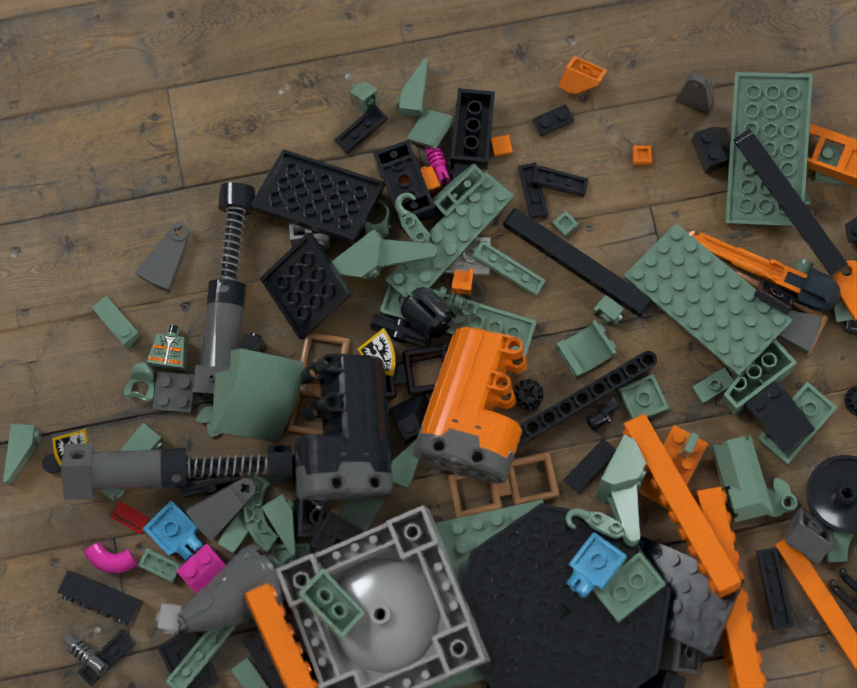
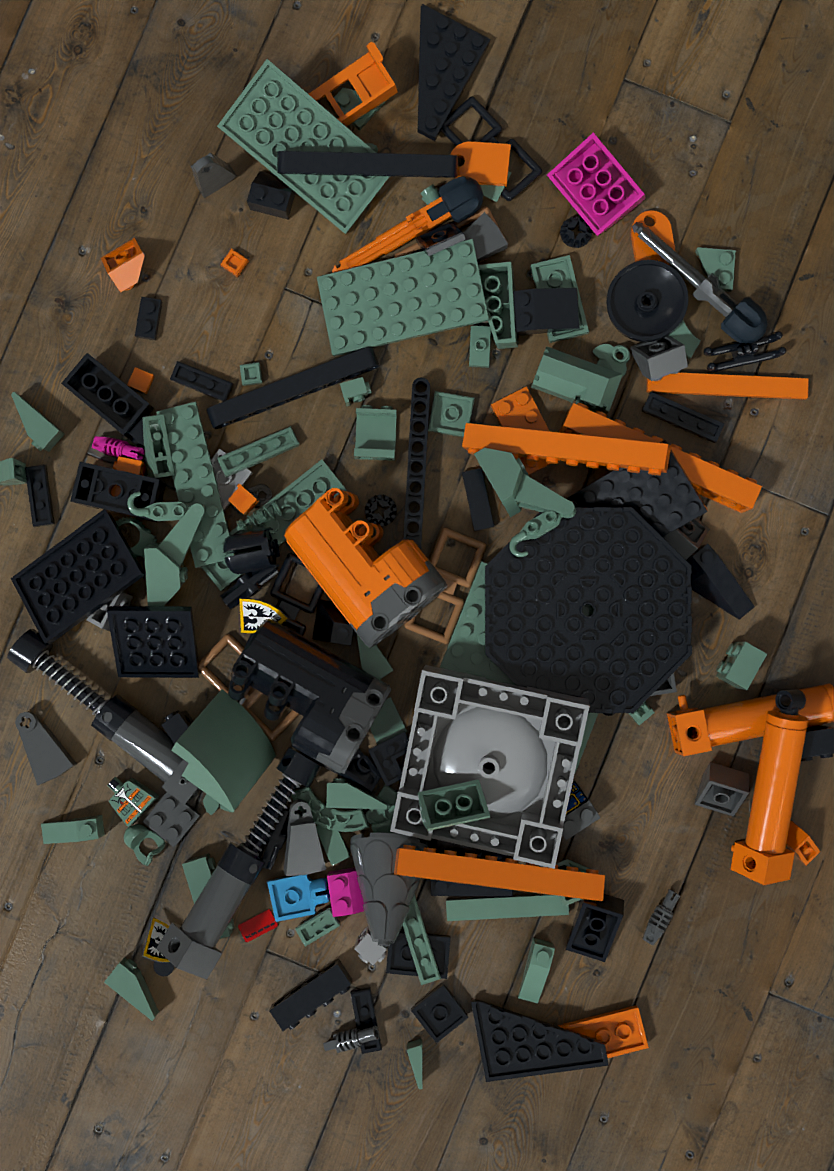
camera: 55 degrees left, 10 degrees up
(109, 561) = (286, 968): dark pink cylinder -> none
(430, 128) = (82, 433): sand green tile -> none
(559, 181) = (208, 352): black tile -> none
(594, 565) = (569, 557): dark azure plate -> none
(602, 415) = (443, 460): black connector -> none
(629, 587) = (605, 540): sand green tile -> none
(688, 445) = (519, 405): sand green tile -> none

